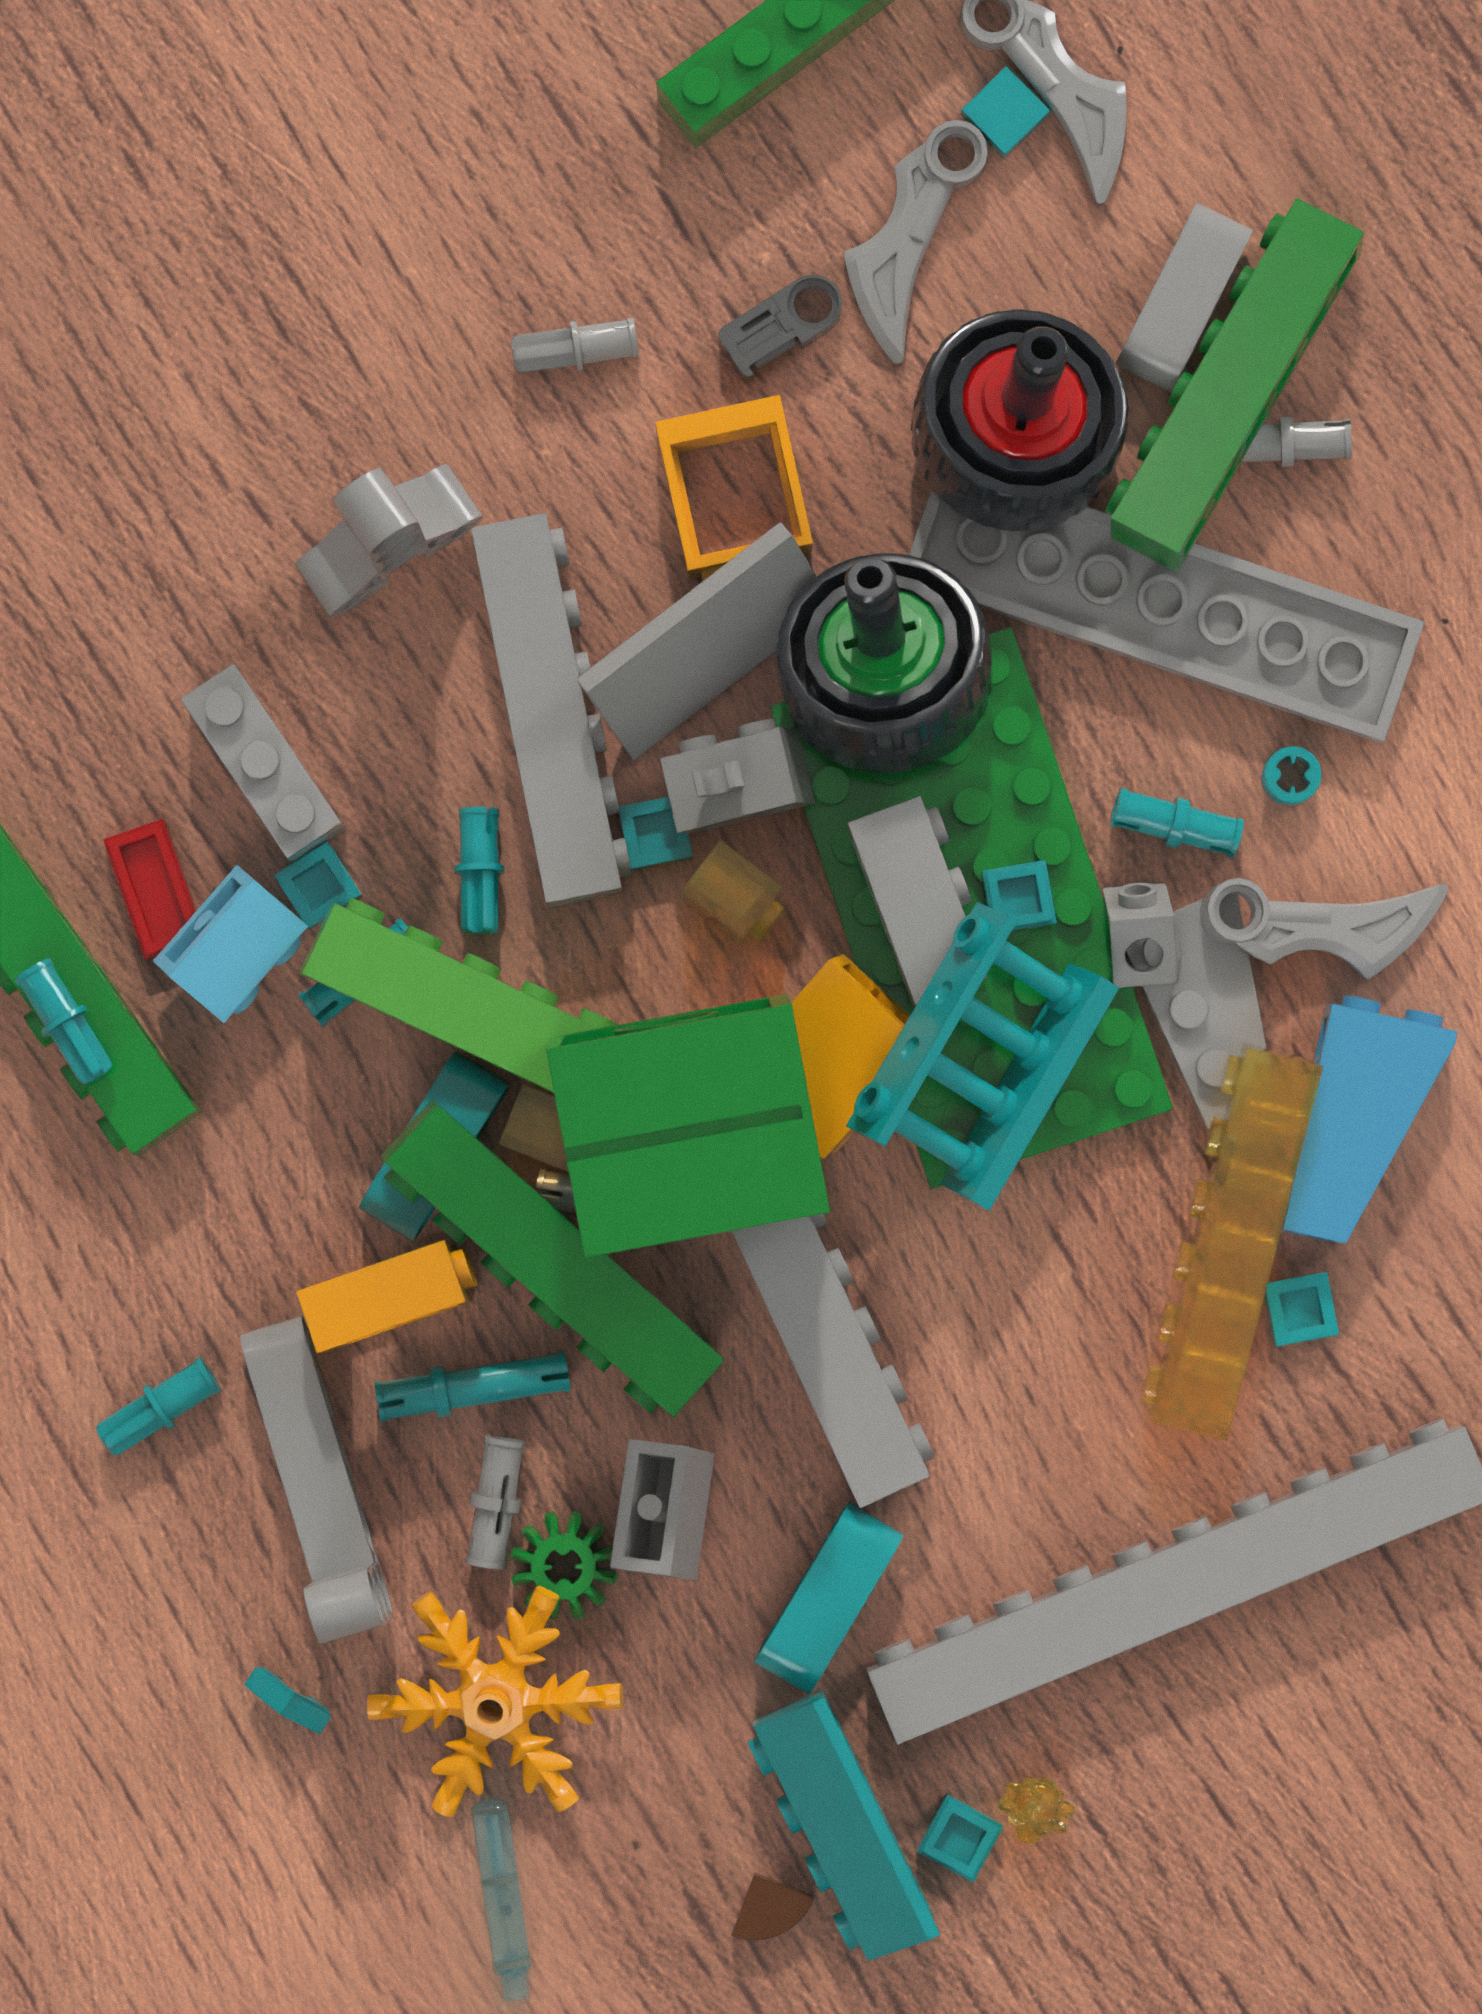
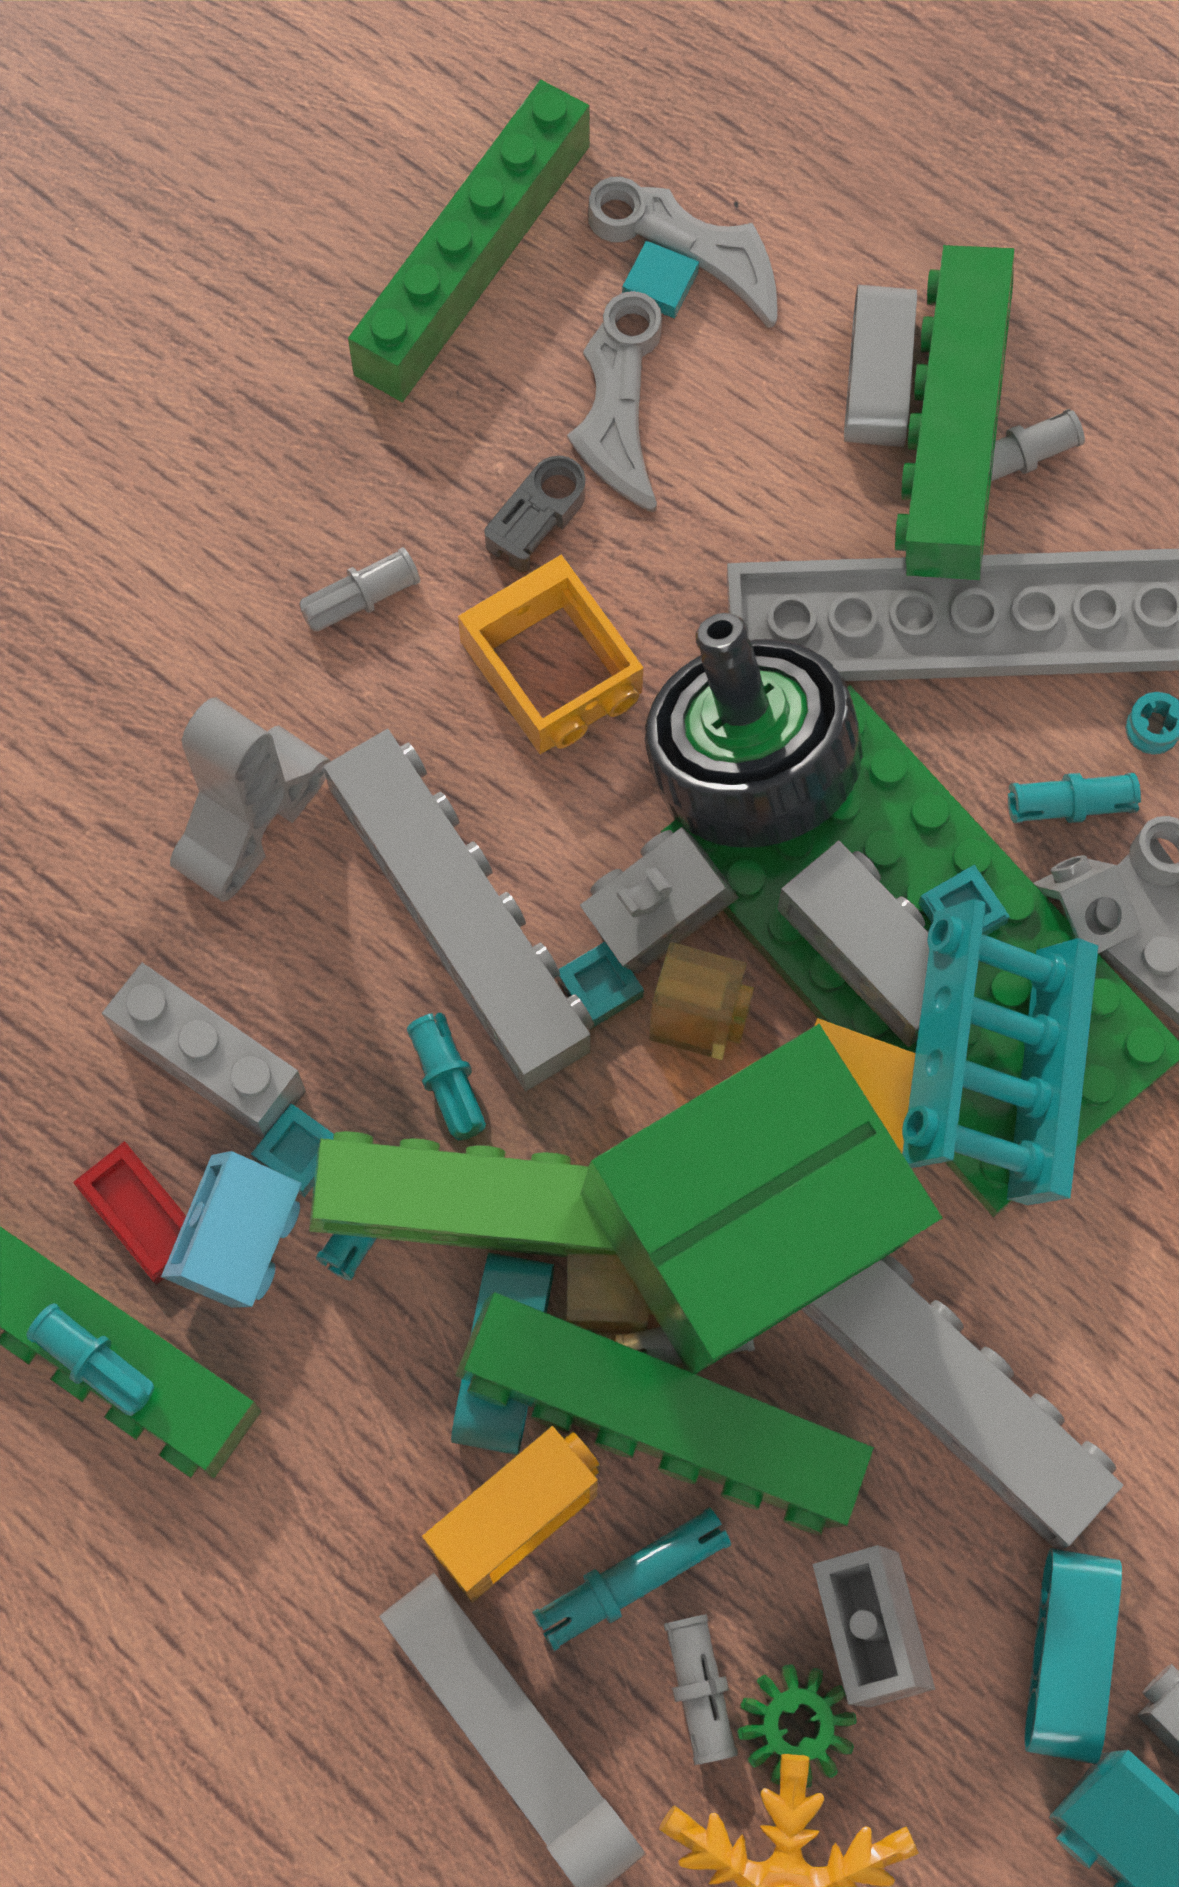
camera: 20 degrees left, 15 degrees down
(158, 1407) = (320, 1727): teal axle -> none
(698, 643) = (574, 792): light grey tile -> none
(1019, 420) = (784, 496): black wheel -> none

